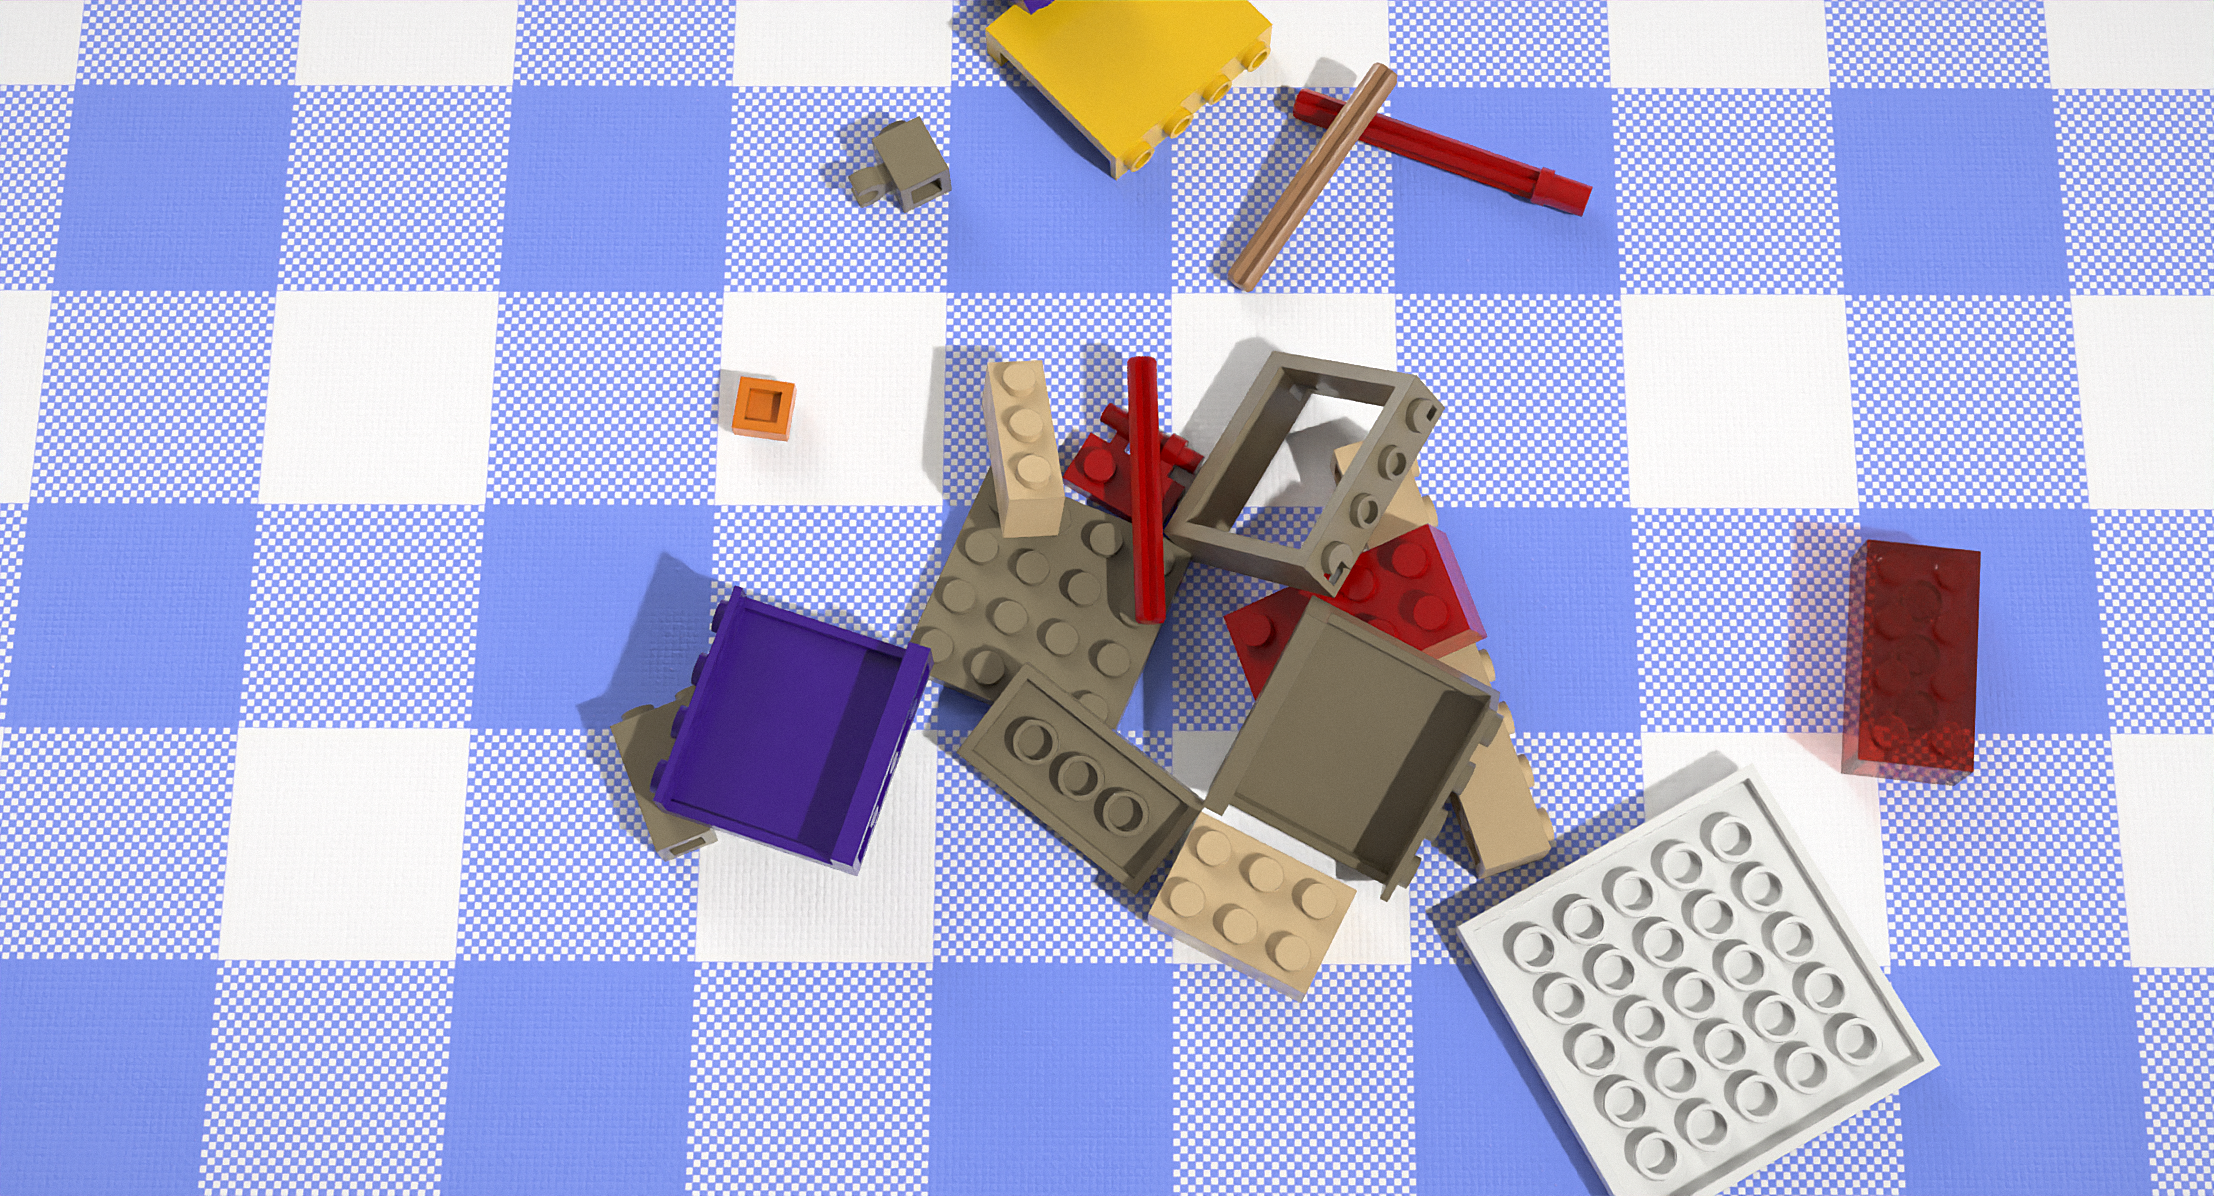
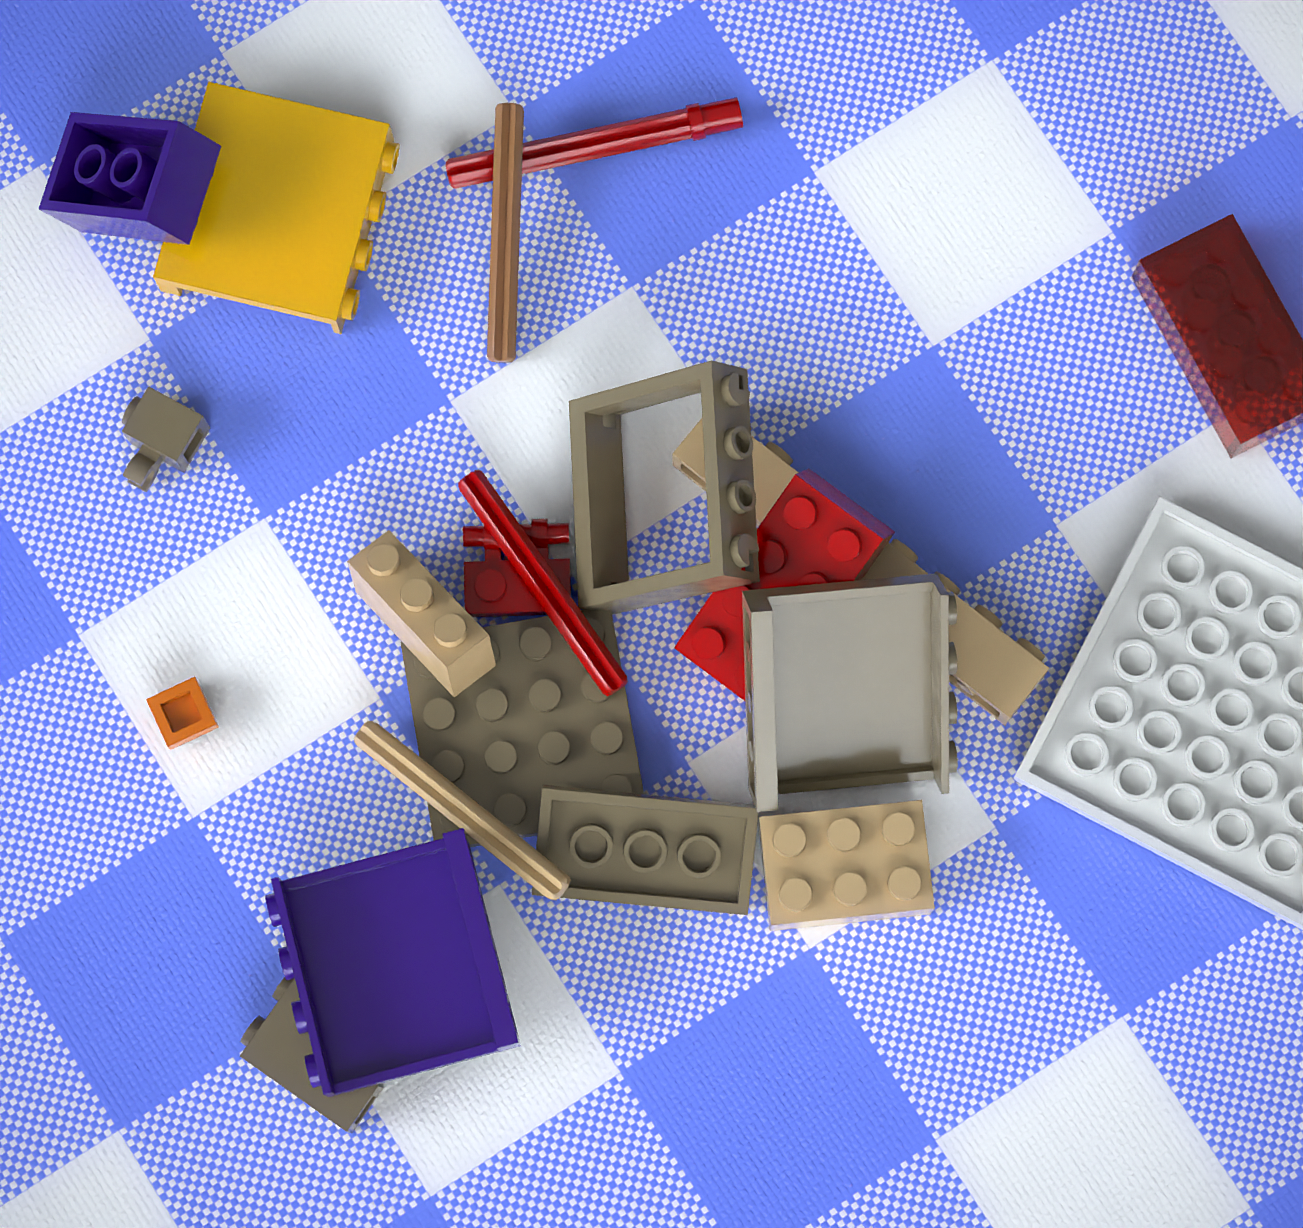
camera: 30 degrees left, 5 degrees up
(944, 641) = (462, 810): none -> tan axle

